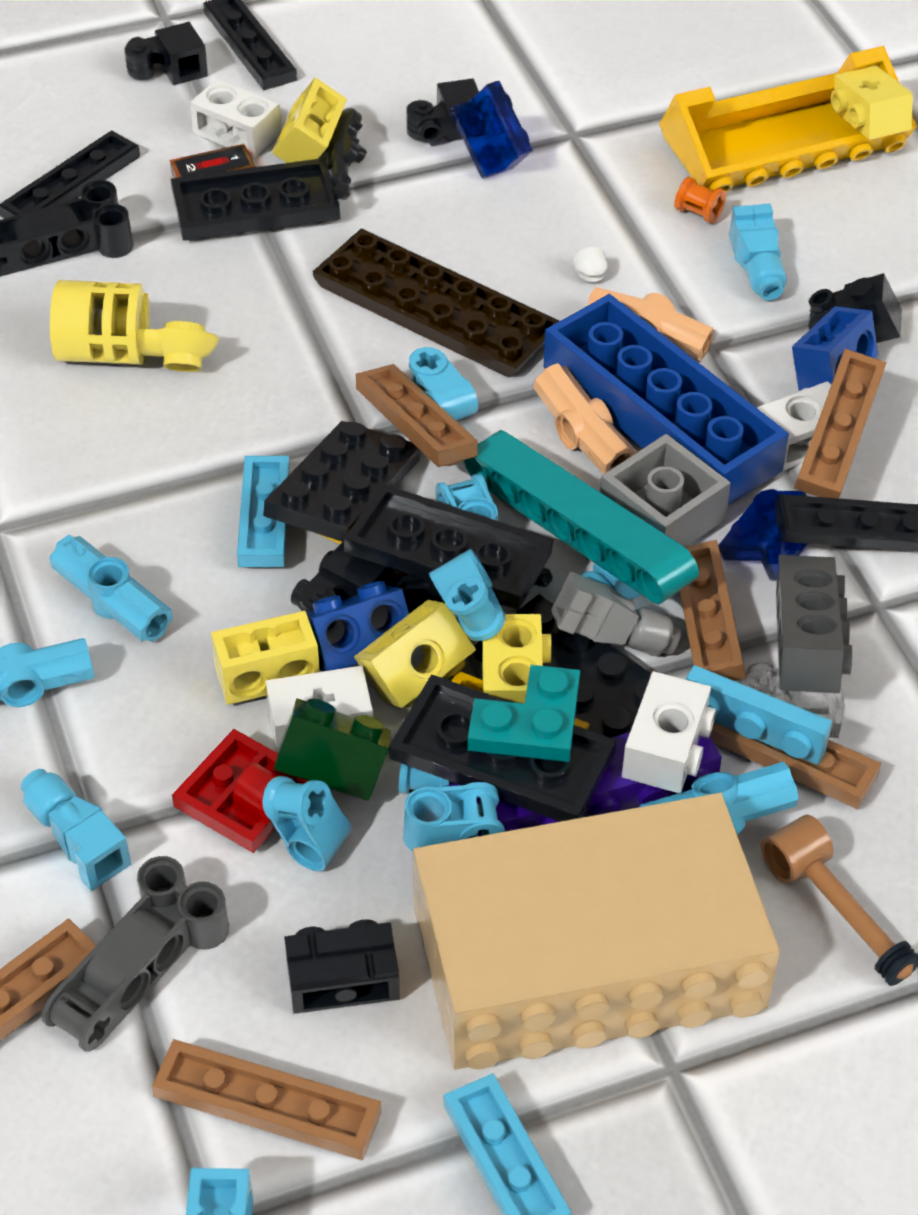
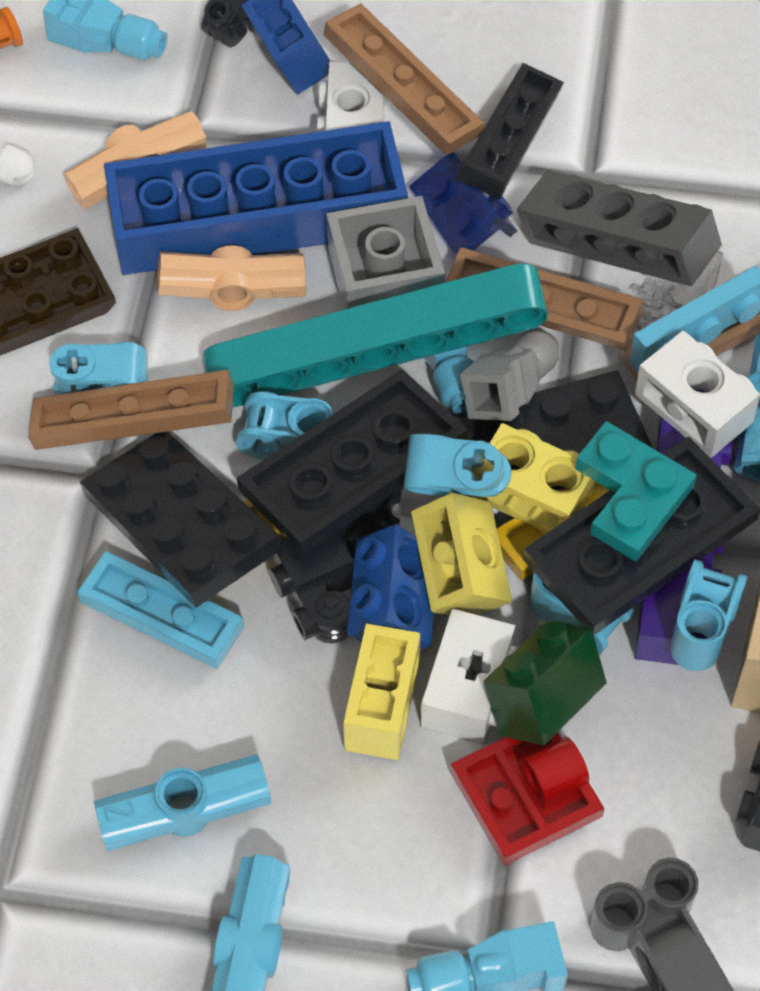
camera: 60 degrees left, 10 degrees up
(306, 820) = (616, 747): medium azure piece -> none

